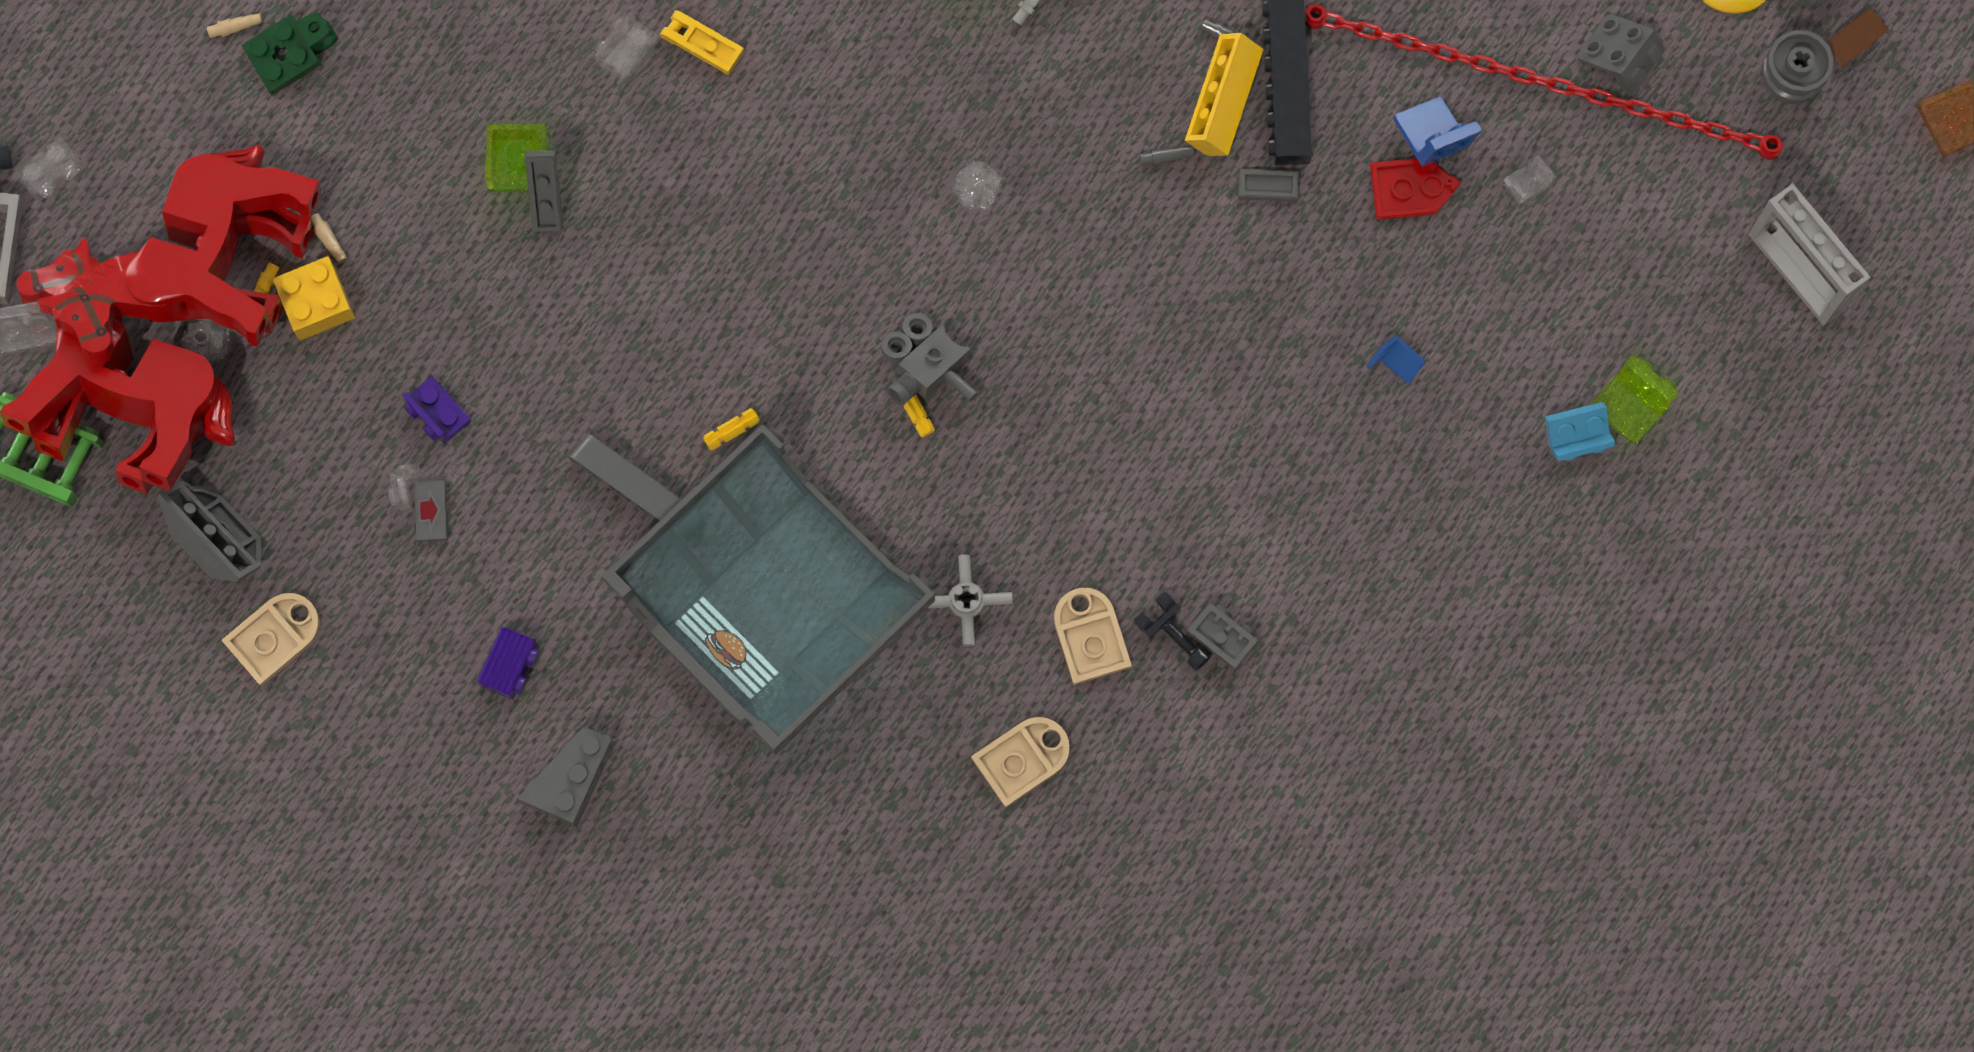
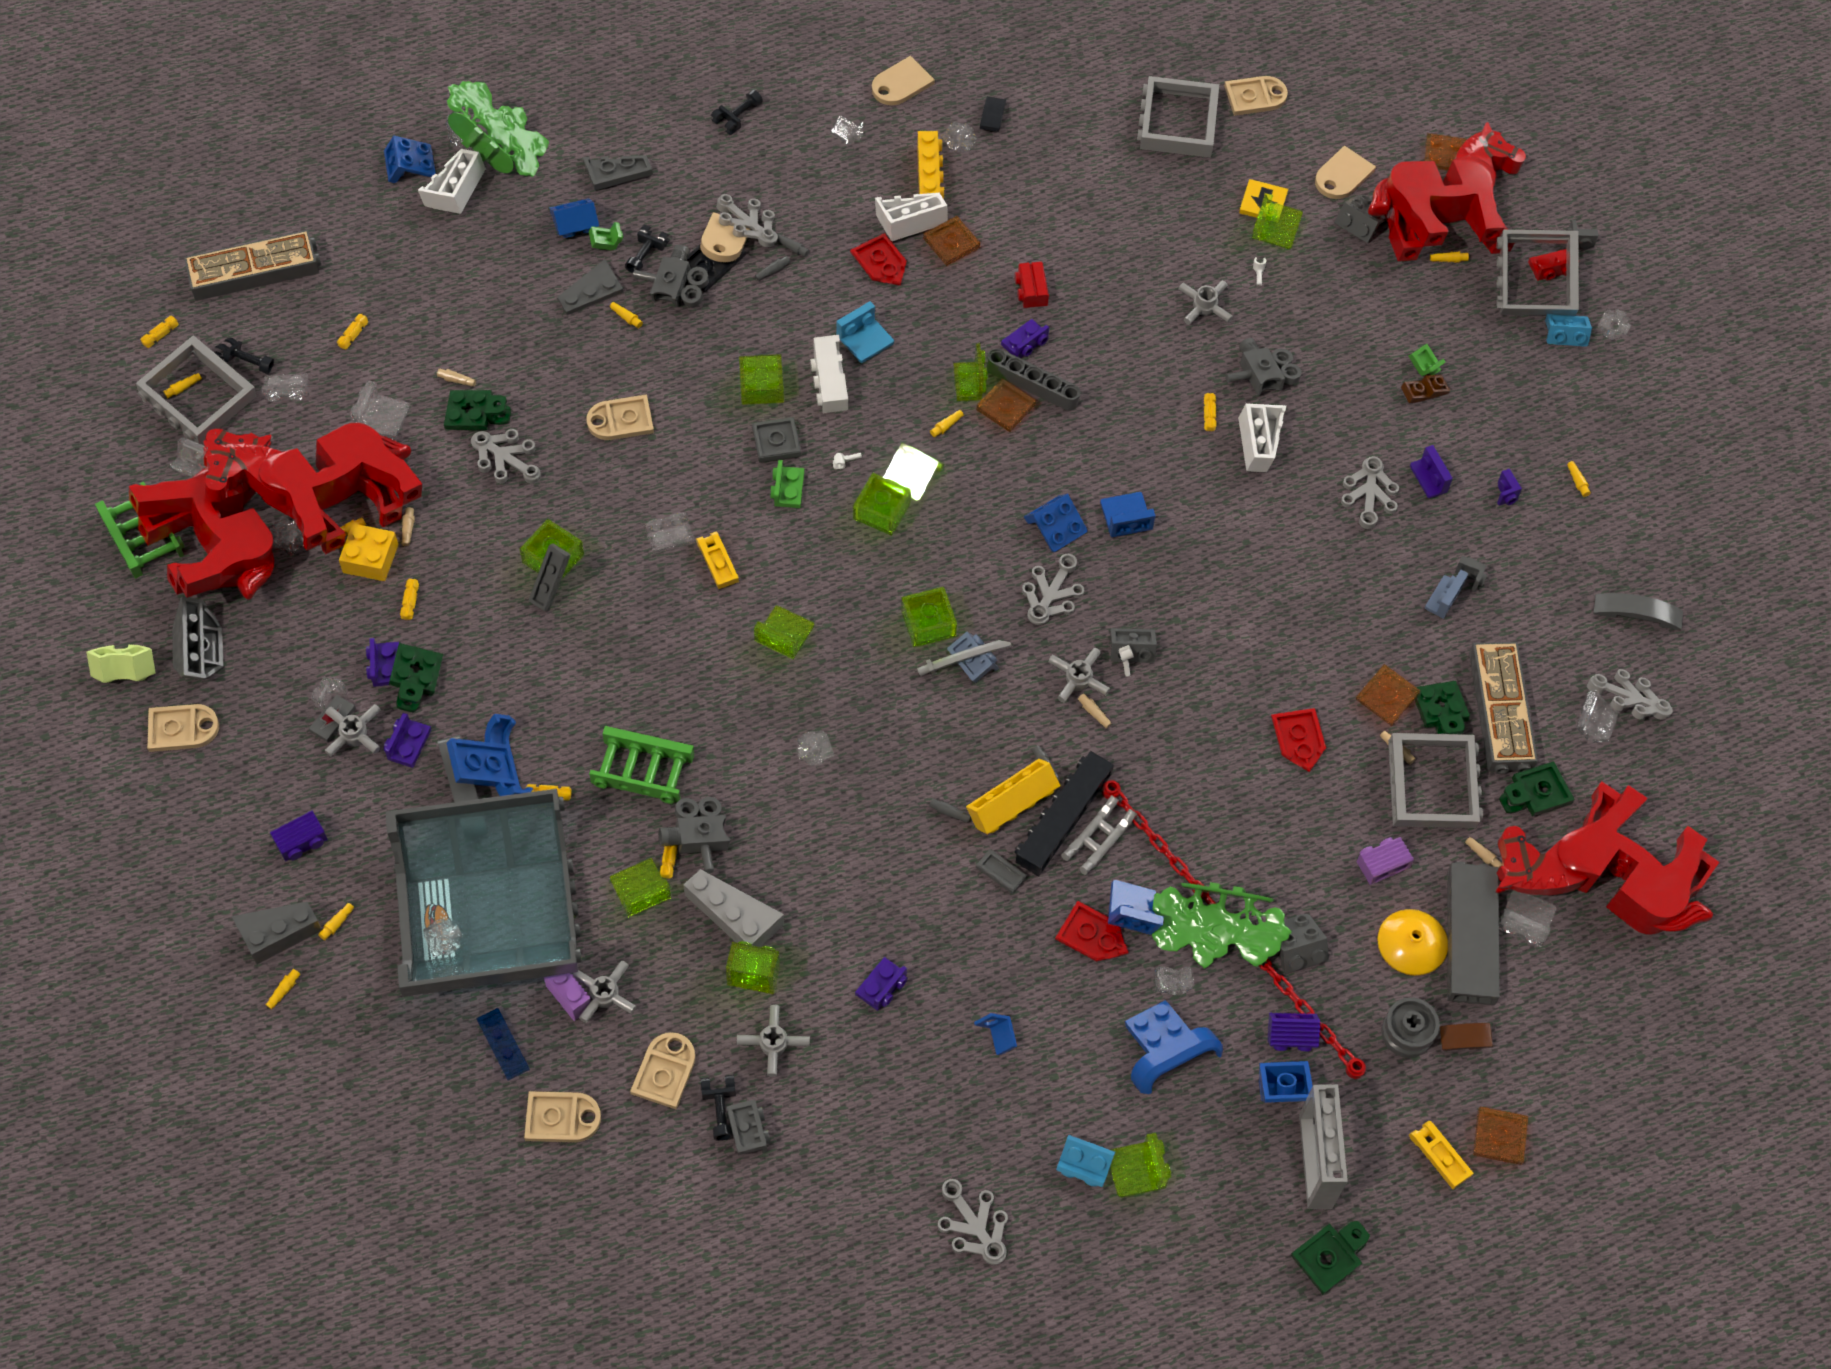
camera: 30 degrees right, 15 degrees down
(67, 50) = (352, 331): none -> yellow axle
(147, 615) = (128, 663): none -> yellowish green brick
(185, 127) = (378, 411): none -> clear bracket
(365, 80) = (504, 454): none -> light grey plant
(401, 319) = (409, 599): none -> yellow axle
(476, 516) = (346, 731): none -> light grey bar
(488, 414) = (413, 684): none -> dark green plate
(535, 480) = (406, 741): none -> dark purple bracket
(623, 725) = (336, 921): none -> yellow animal
(627, 832) = (283, 988): none -> yellow animal
(645, 441) = (488, 761): none -> blue piece
(758, 663) = (442, 937): none -> clear brick
(812, 301) = (637, 744): none -> bright green fence
(839, 75) = (783, 631): none -> clear neon green bracket
(902, 727) = (502, 1044): none -> clear blue tile
(911, 463) = (640, 887): none -> clear neon green bracket
(935, 630) = (568, 993): none -> medium lavender brick
(1032, 422) = (733, 910): none -> light grey wedge
(1101, 467) = (753, 967): none -> clear neon green brick
(1177, 539) = (773, 1031): none -> light grey bar
(1239, 391) = (881, 983): none -> dark purple bracket
(1329, 62) = (1099, 822): none -> light grey piece
(1518, 572) = (975, 1226): none -> light grey plant
(1530, 96) = (1213, 928): none -> bright green plant
(1571, 252) = (1166, 1042): none -> blue piece
(1686, 151) = (1293, 1031): none -> dark purple brick
(1719, 213) = (1284, 1081): none -> blue slope
(1883, 342) = (1340, 1246): none -> dark green plate
(1914, 178) = (1441, 1155): none -> yellow plate

